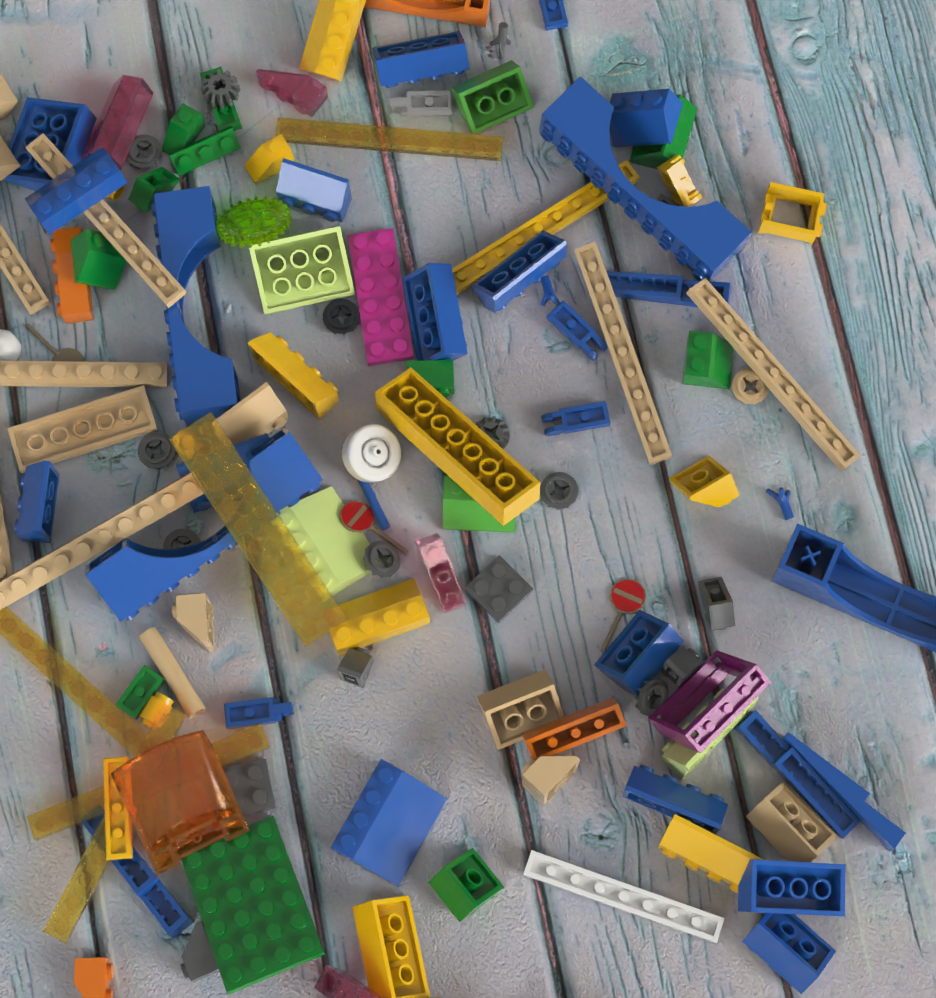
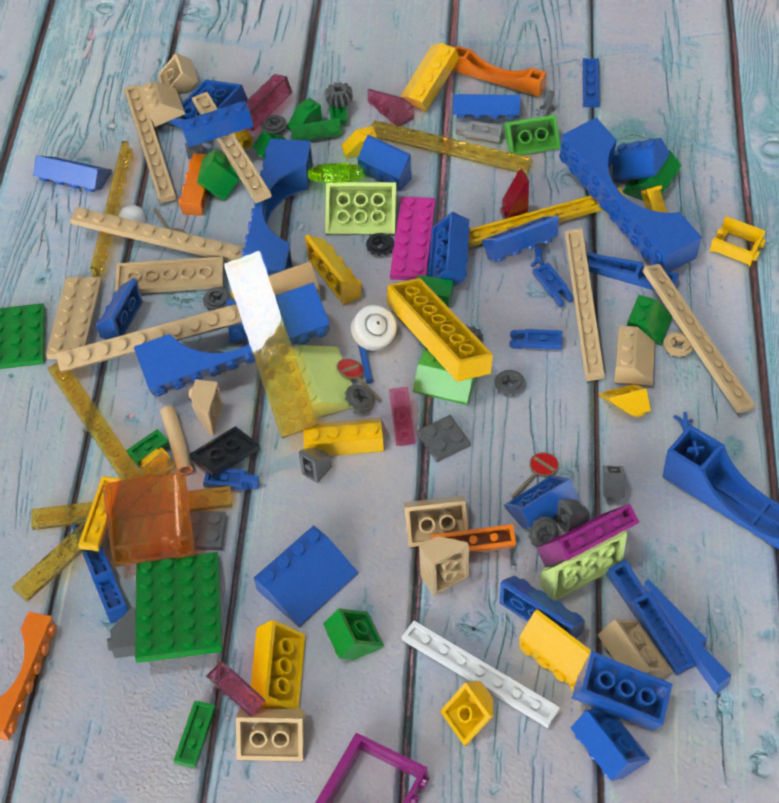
camera: 15 degrees right, 20 degrees down
(238, 676) = (224, 451): none -> black tile
(501, 214) = (517, 196): none -> dark red slope
(626, 949) = (469, 710): none -> yellow slope
(701, 419) = (634, 356): none -> tan slope

